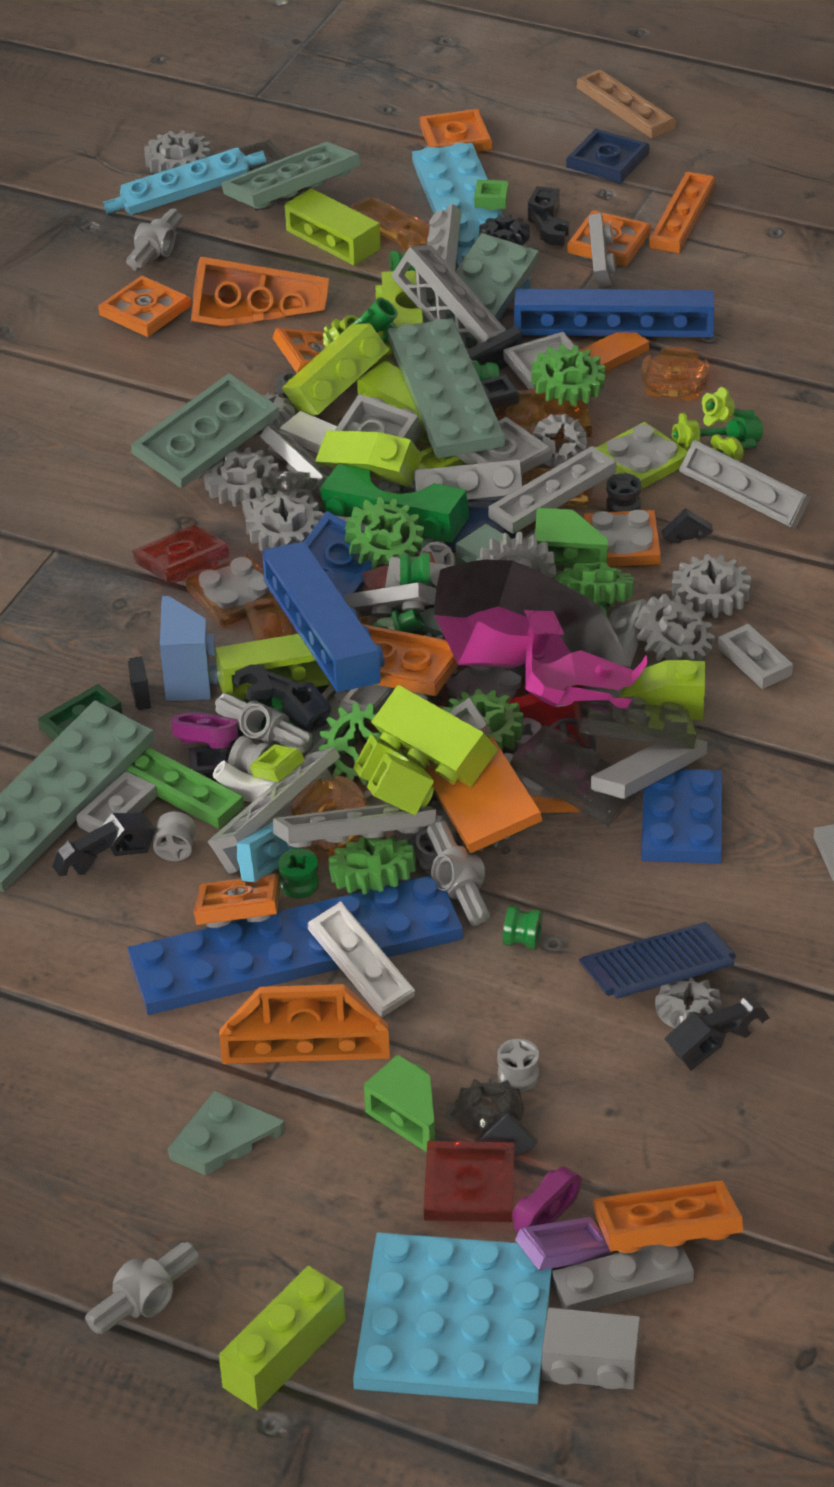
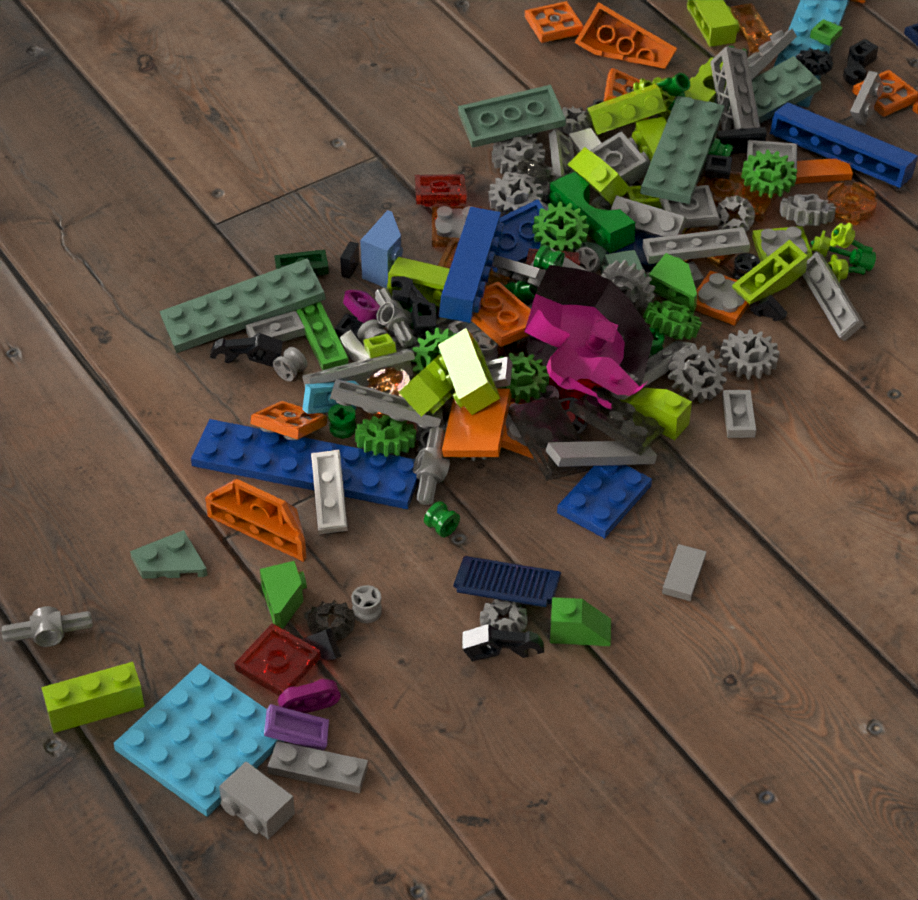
camera: 30 degrees right, 5 degrees up
(639, 400) = (807, 210): none -> light grey gear
(666, 482) = (773, 273): none -> lime slope
(667, 1216) = (367, 743): orange plate -> none
(779, 967) = (578, 623): none -> bright green slope

